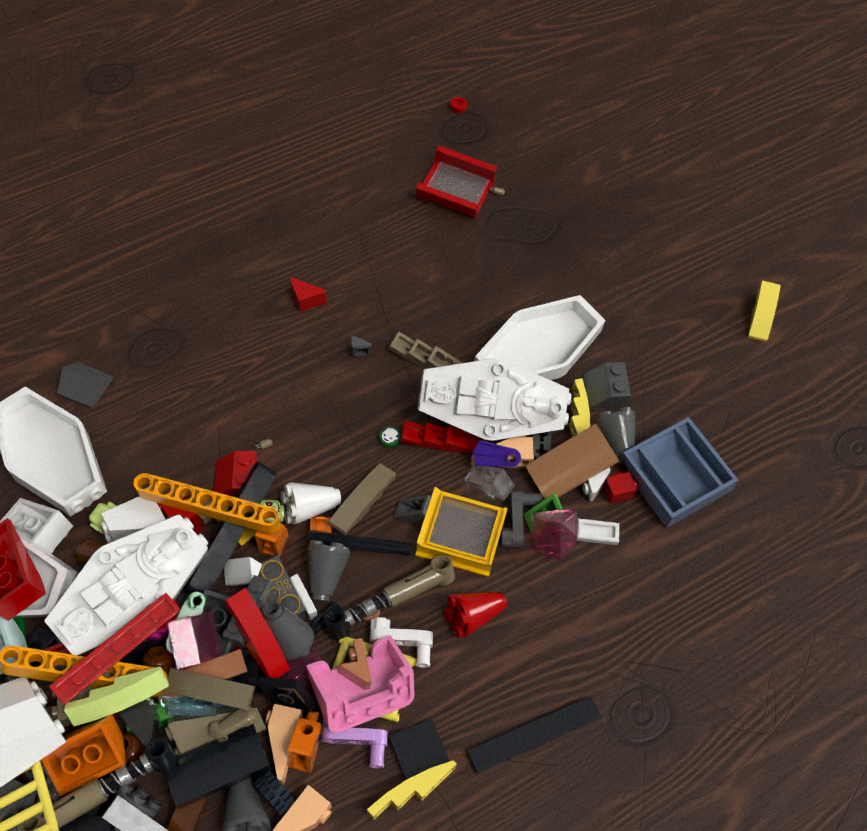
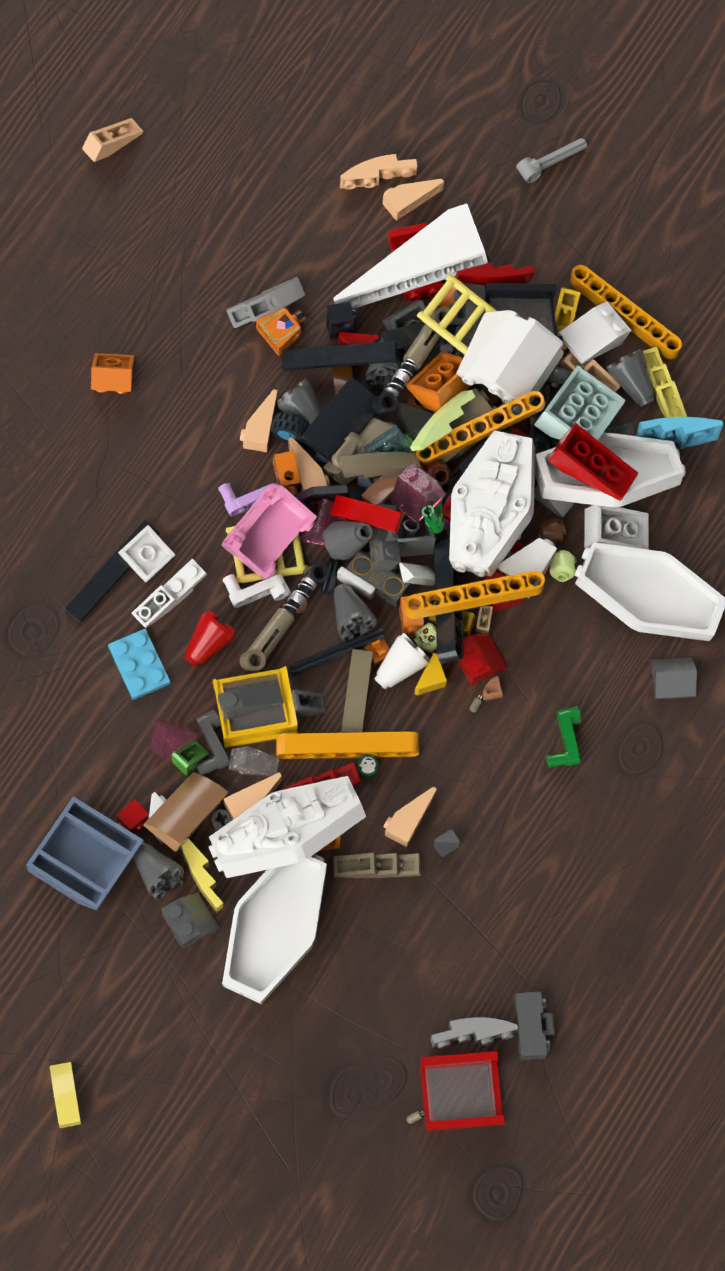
camera: 150 degrees right, 10 degrees up
(114, 649) = (465, 449): red tile -> none
(199, 390) = (566, 719): none -> green beam
(243, 445) = (492, 689): none -> nougat tile
(287, 474) = (432, 677): none -> yellow slope
(307, 295) = (534, 872): red slope -> none
(357, 670) = (275, 538): nougat slope -> none
(381, 196) = (531, 1038): none -> dark grey piece
(381, 377) = (407, 819): none -> light nougat slope
(397, 458) = (347, 745): none -> light orange beam
(418, 748) = (198, 516): black tile -> none
(418, 785) = (186, 487): light yellow slope -> none
(424, 219) = (482, 1029): none -> light grey slope
(458, 105) = (522, 1220): red tile -> none
(469, 523) = (249, 700): none -> dark grey slope
(491, 676) = (170, 594): none -> white slope
(492, 732) = (146, 553): none -> white tile
(494, 455) = (258, 782): dark purple piece -> none
(551, 626) = (139, 664): none -> medium azure plate
(597, 531) = (135, 769): white tile -> none

